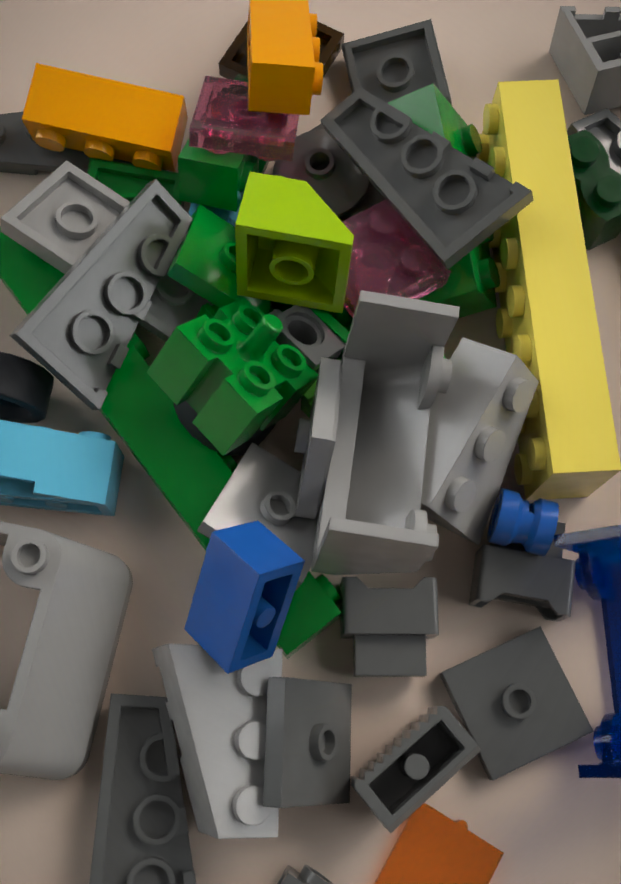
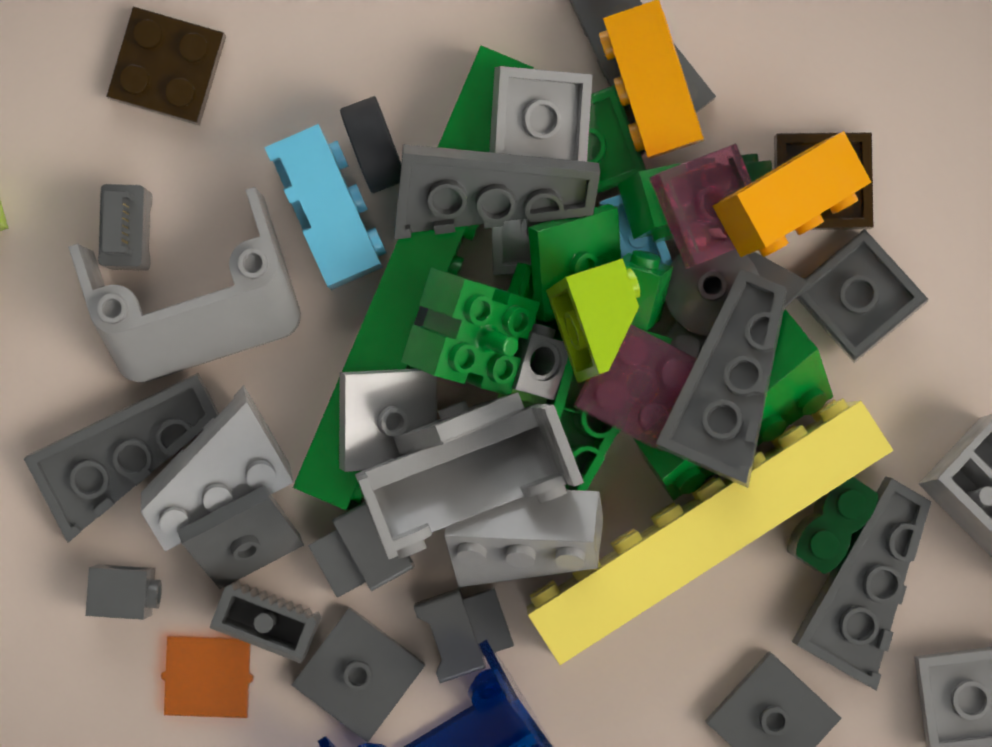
camera: 65 degrees right, 15 degrees up
(243, 595) = (307, 435): blue brick -> none
(523, 522) = (488, 611): blue wheel -> none

